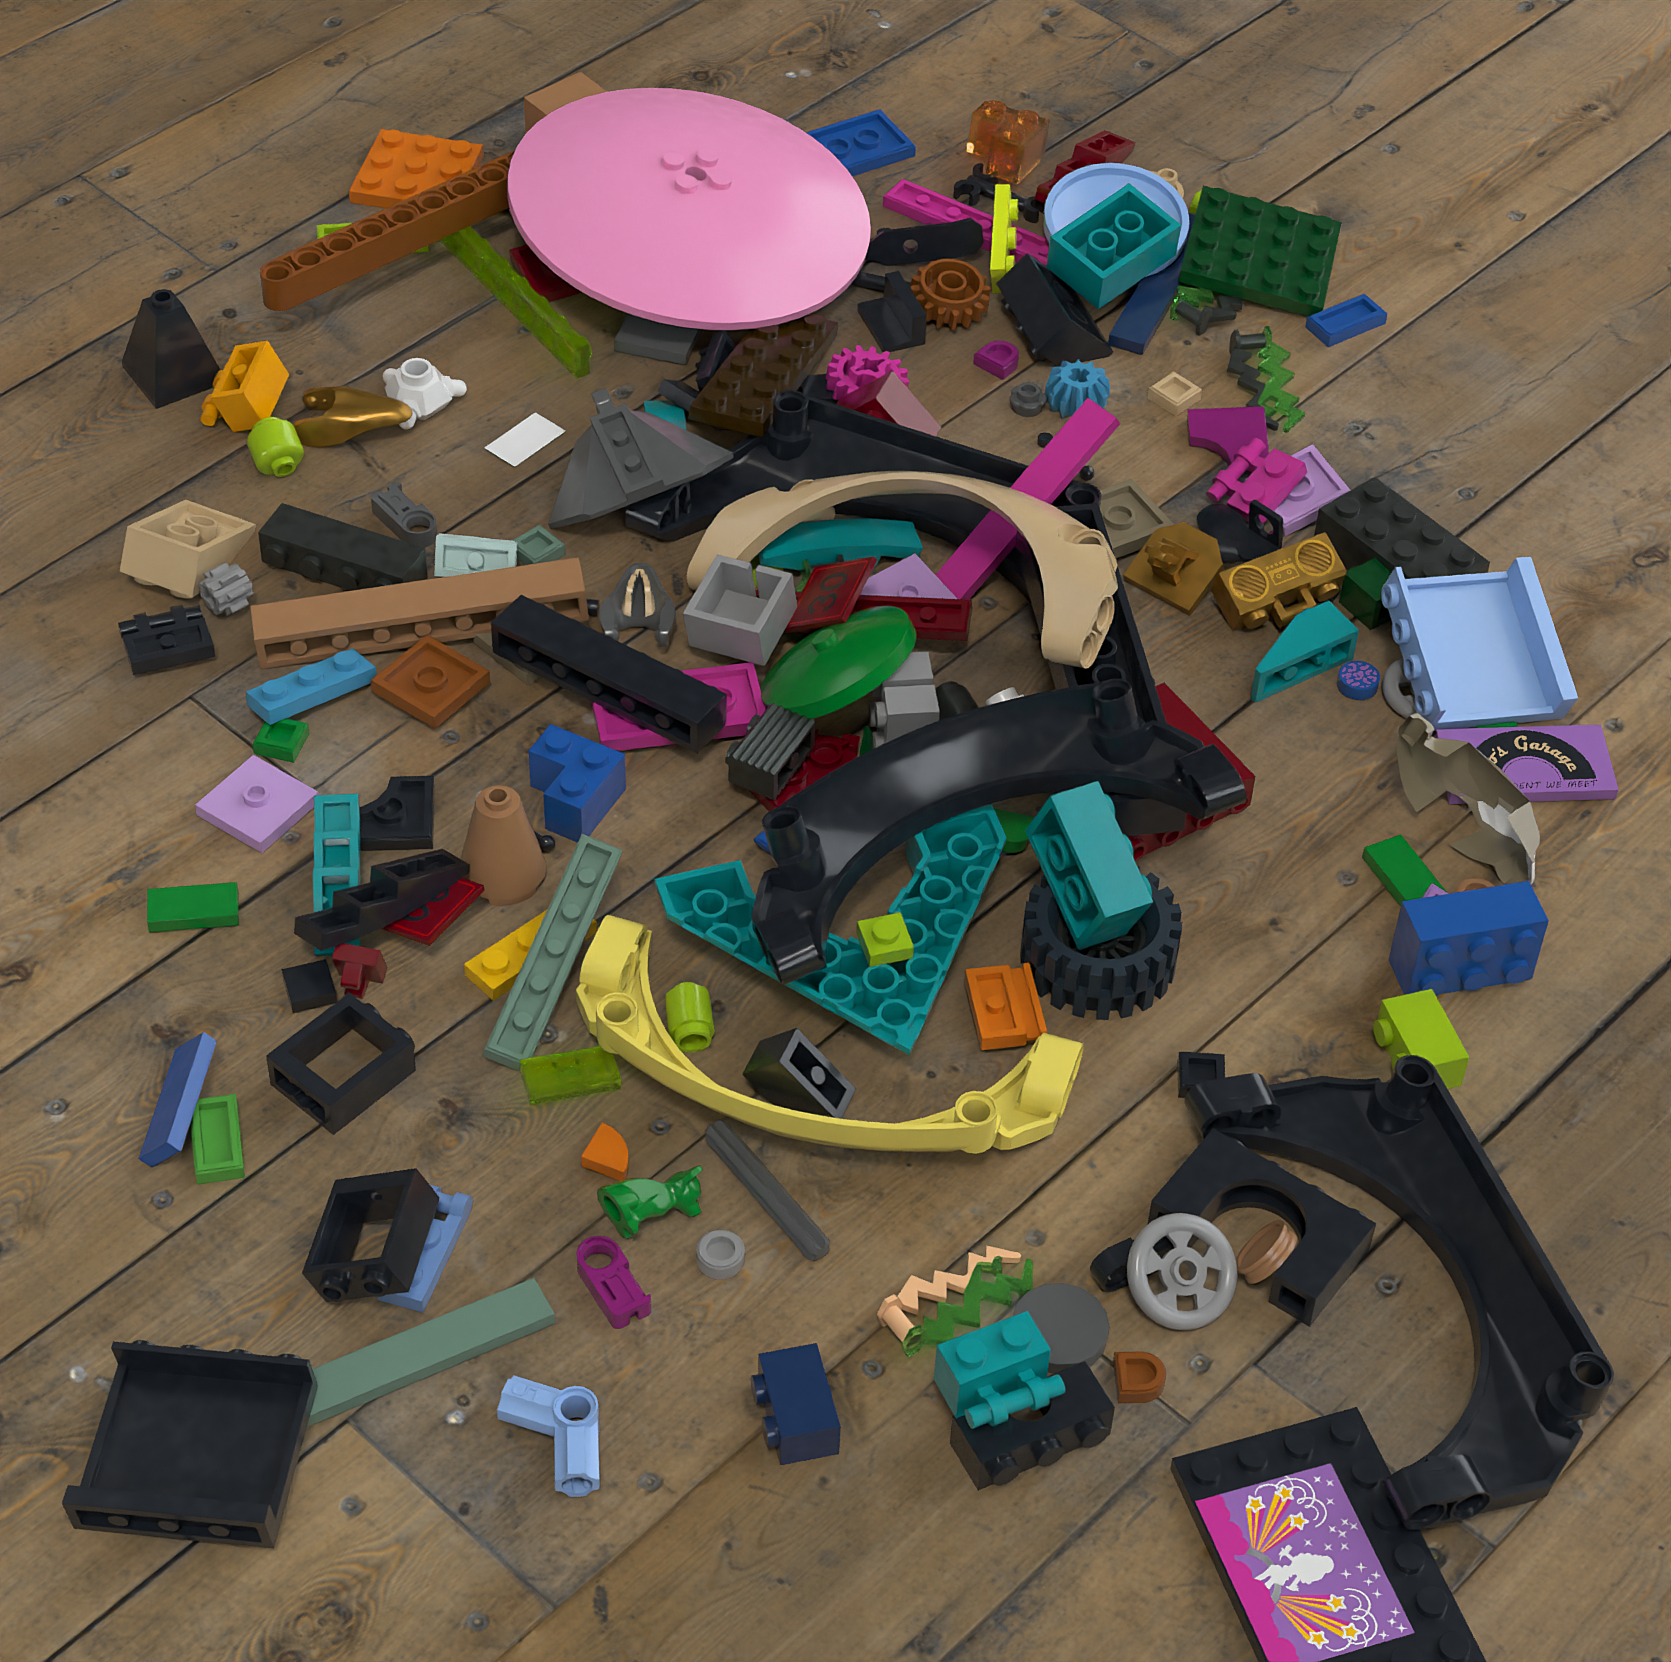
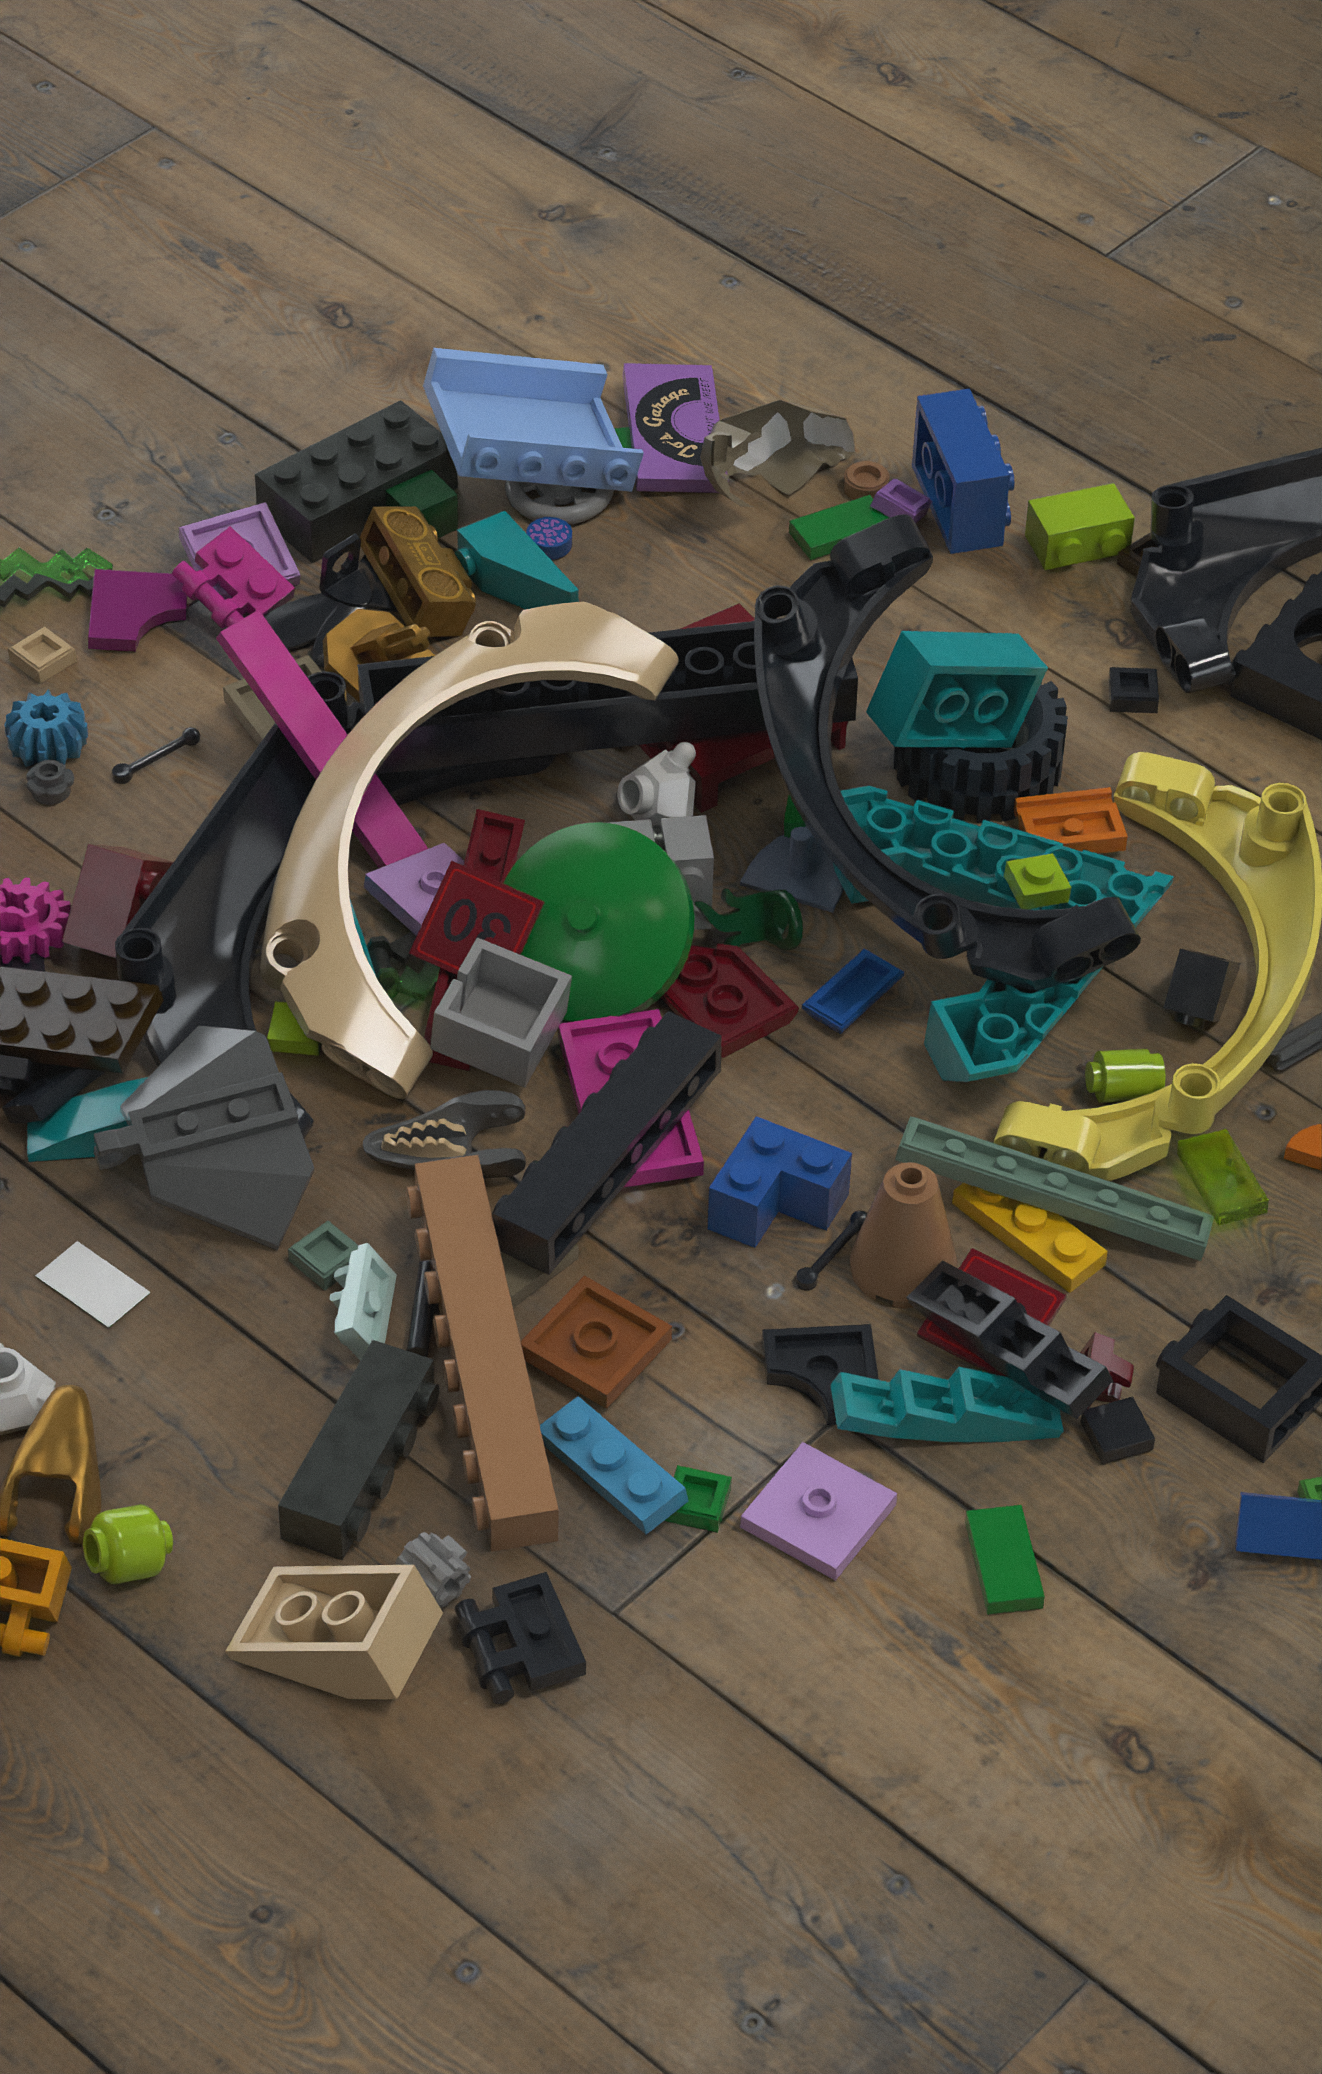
camera: 90 degrees left, 0 degrees up
(401, 514) = (260, 1400): dark grey piece -> none
(770, 751) = (726, 995): pearl dark grey brick -> none

